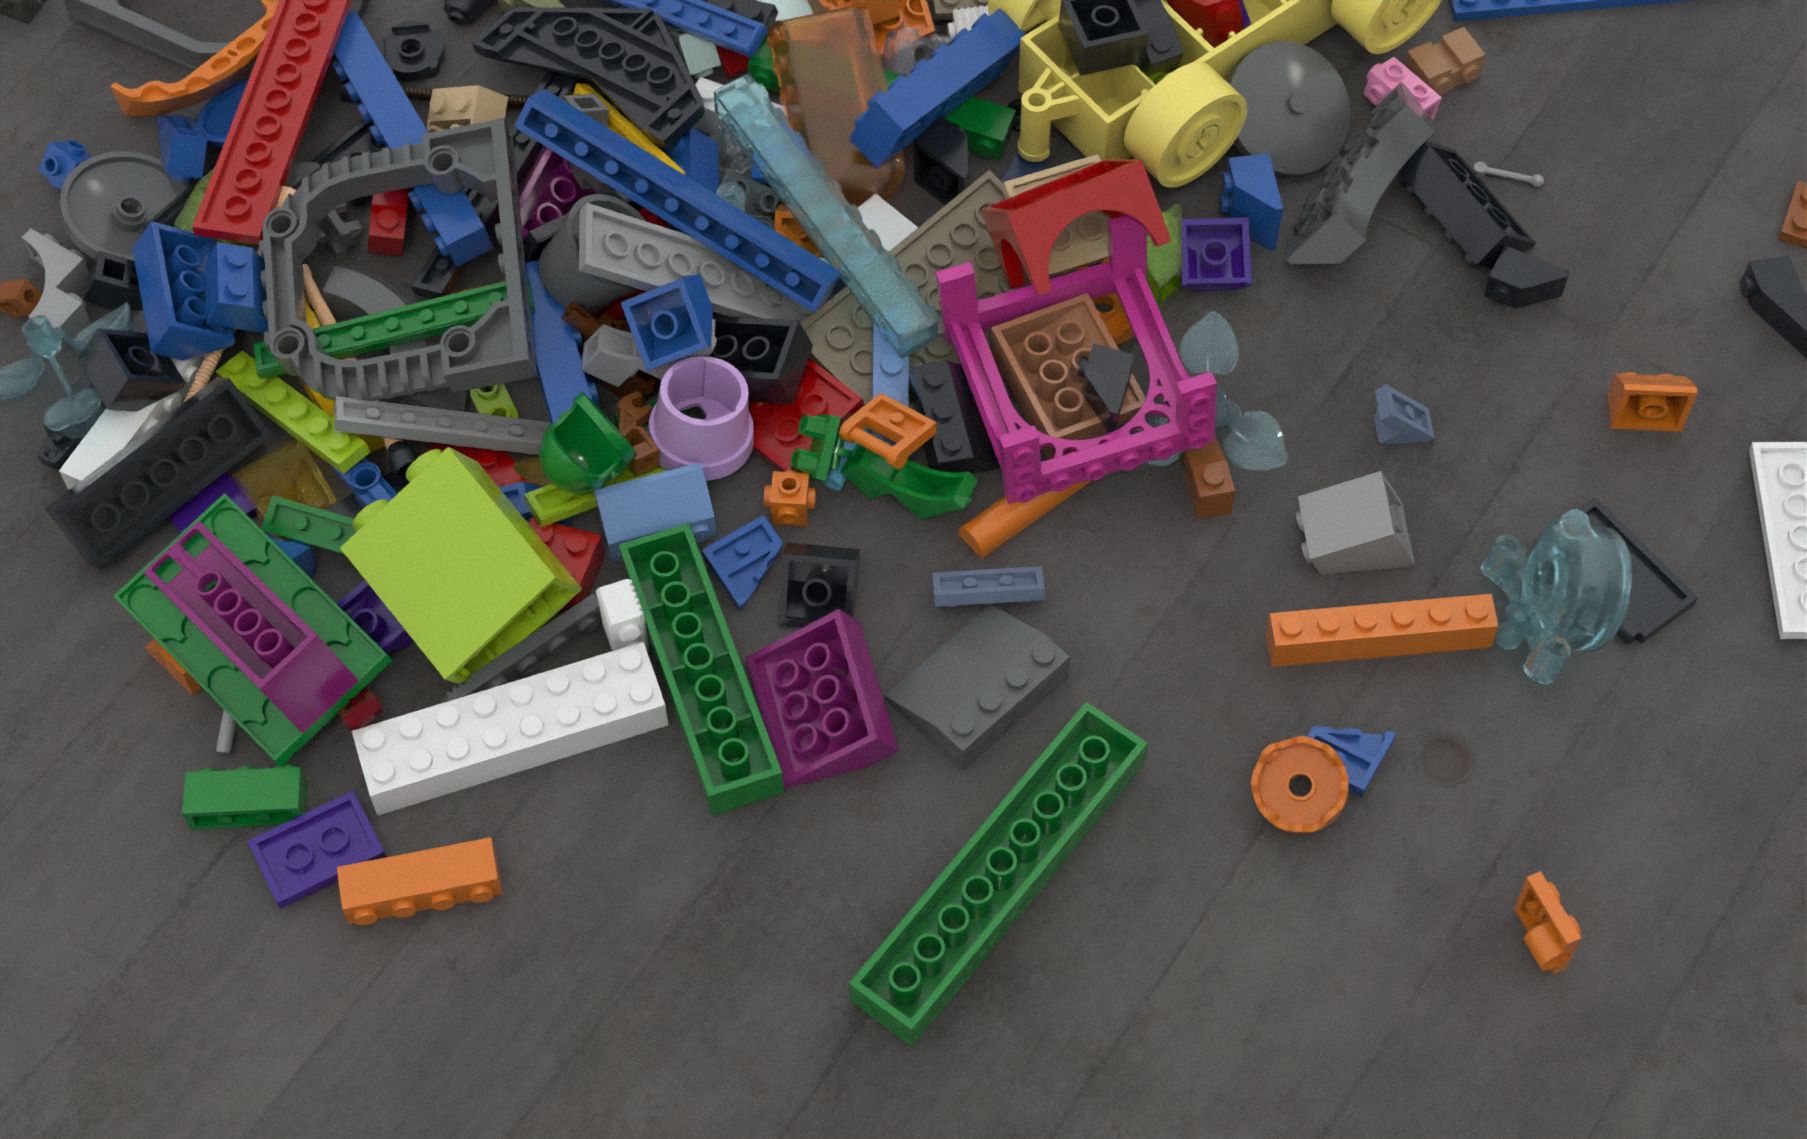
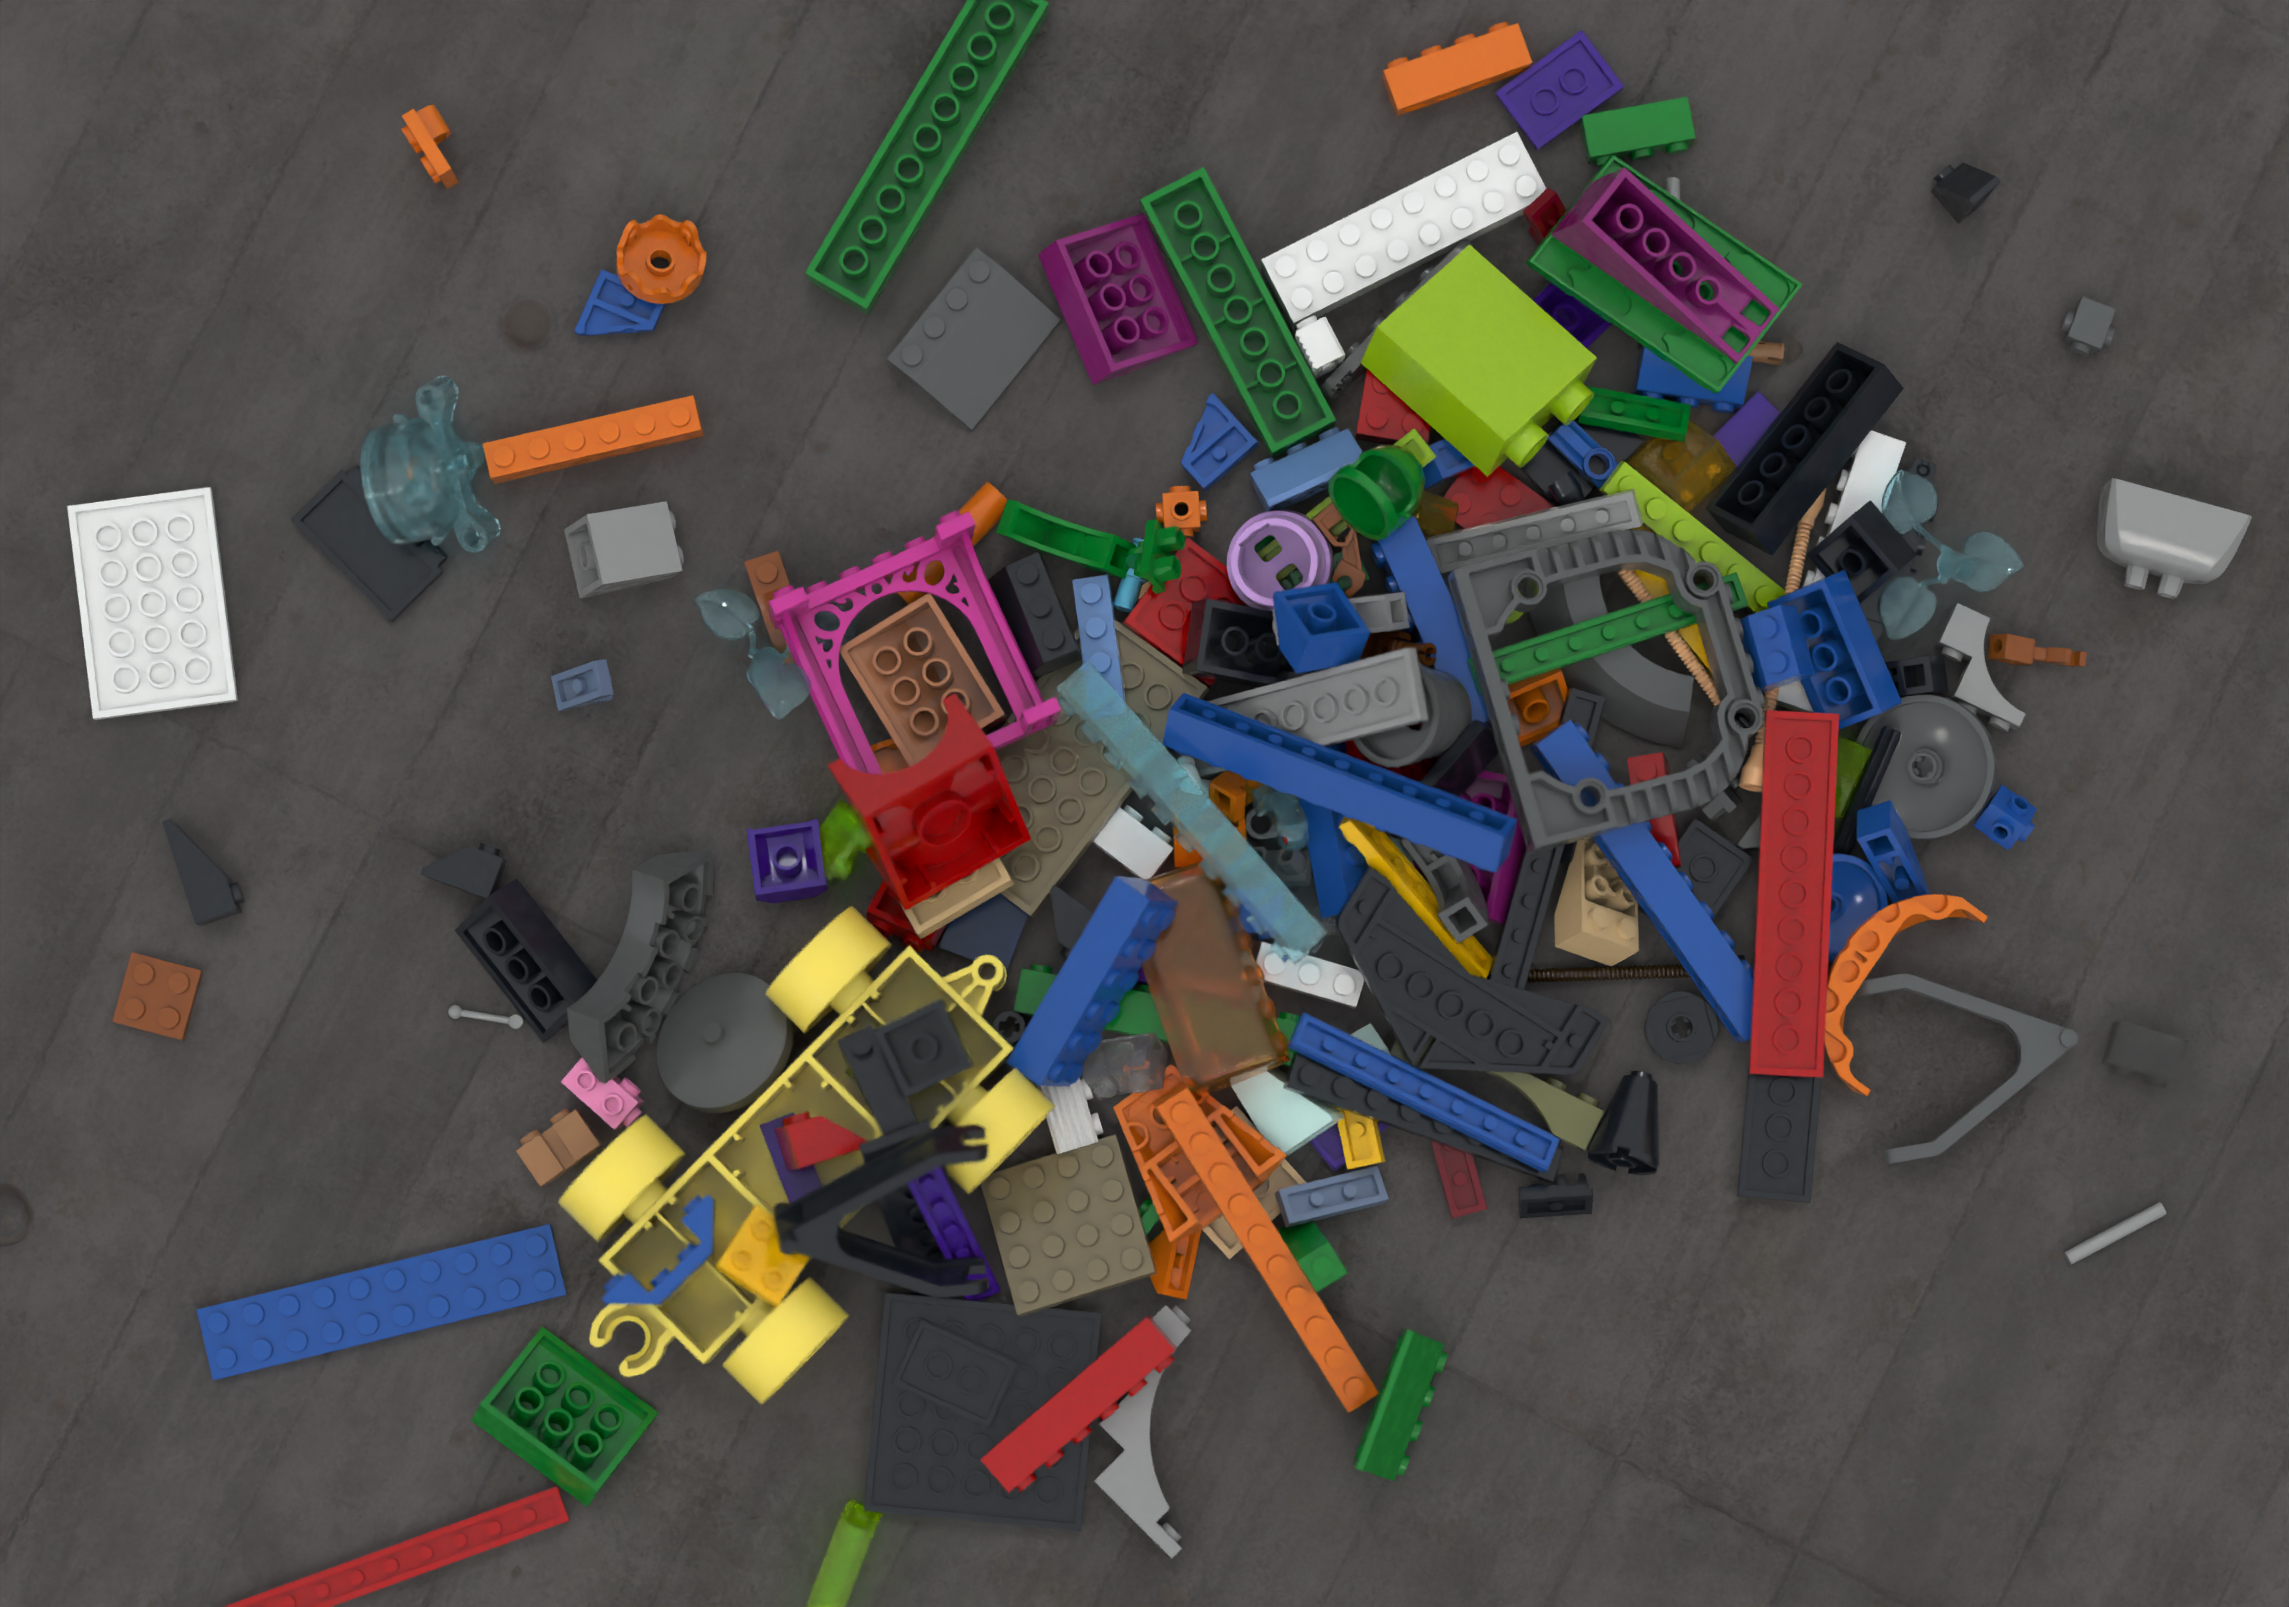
camera: 170 degrees right, 25 degrees up
(817, 582) = (1138, 422): black slope -> none
(892, 421) = (1084, 582): orange plate -> none
(988, 586) = (975, 442): sand blue plate -> none
(1106, 381) = (880, 653): black slope -> none
(1253, 193) = (753, 926): blue slope -> none
(1650, 401) = (337, 736): orange slope -> none

